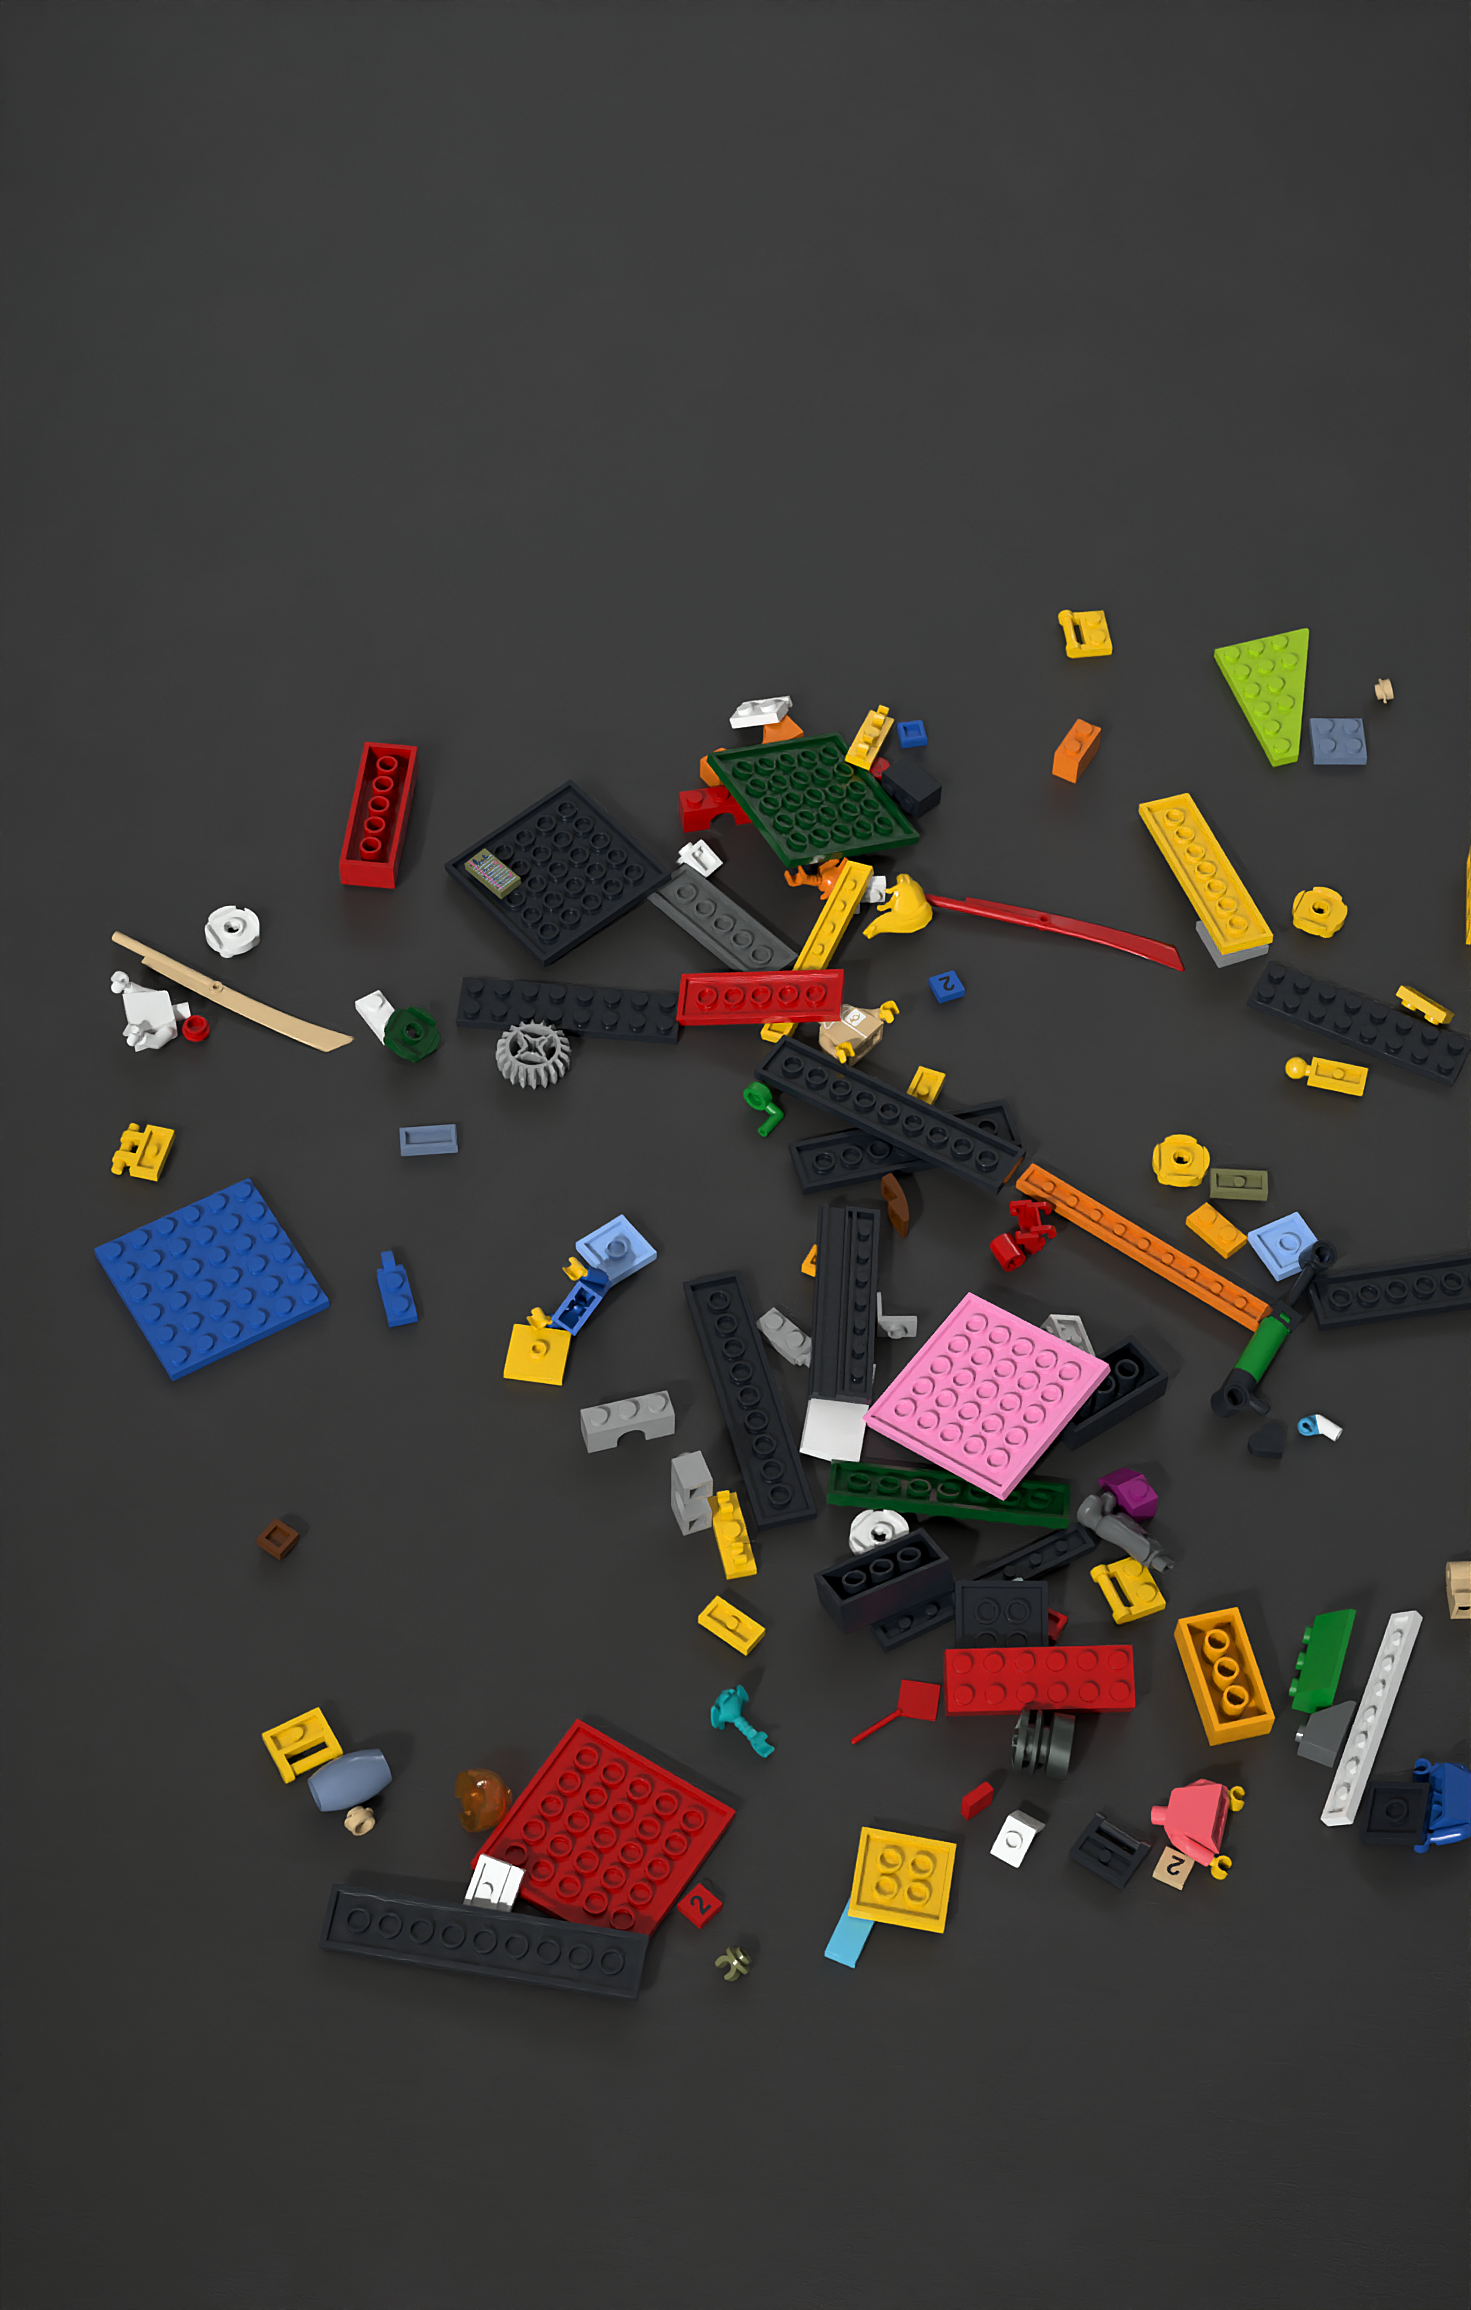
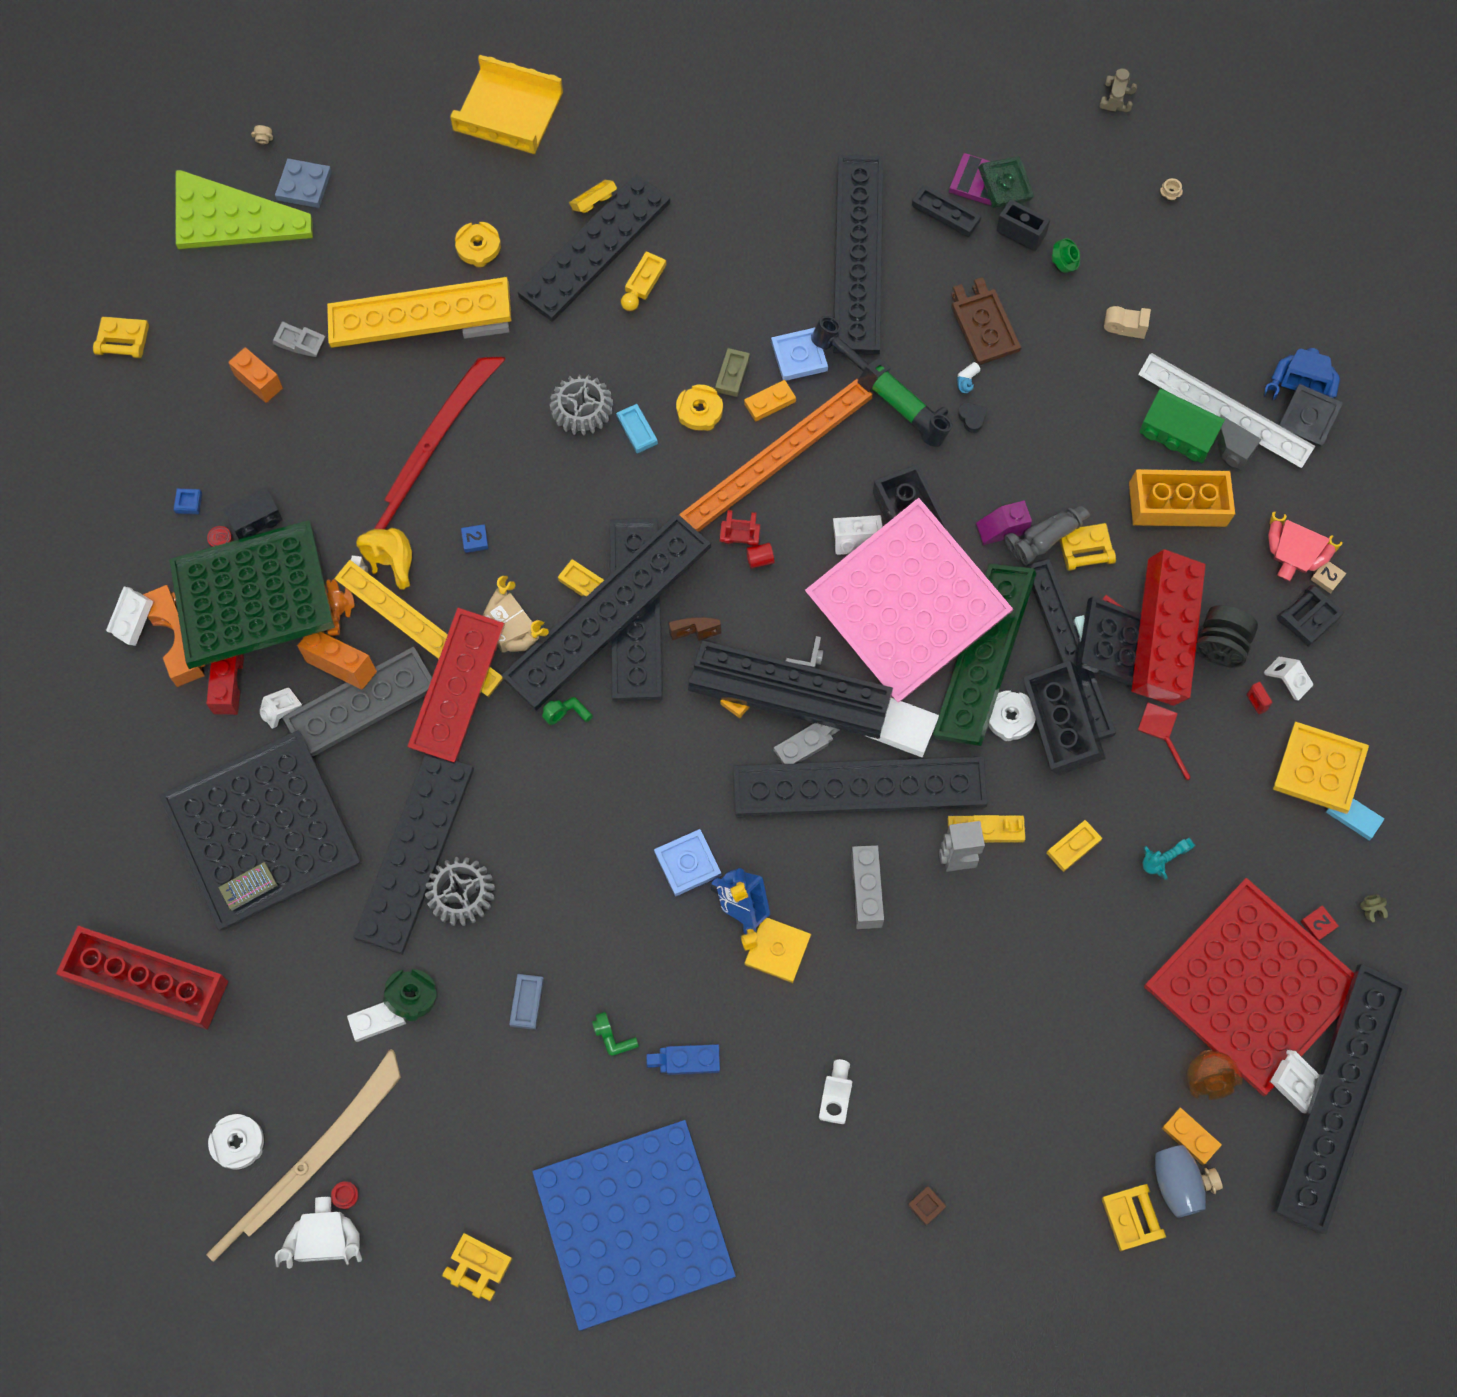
camera: 75 degrees left, 15 degrees up
(386, 1433) = (836, 1091): none -> white bracket
(408, 1796) = (1191, 1135): none -> light orange plate
(412, 1210) = (603, 1028): none -> green plate
(761, 890) = (337, 659): none -> orange brick
(870, 738) = (187, 534): yellow plate -> none
(1134, 1108) = (637, 428): none -> medium azure tile
(1137, 780) = (297, 340): none -> light grey slope
(1158, 1040) = (572, 395): none -> light grey gear
(1403, 1433) = (984, 323): none -> reddish brown tile

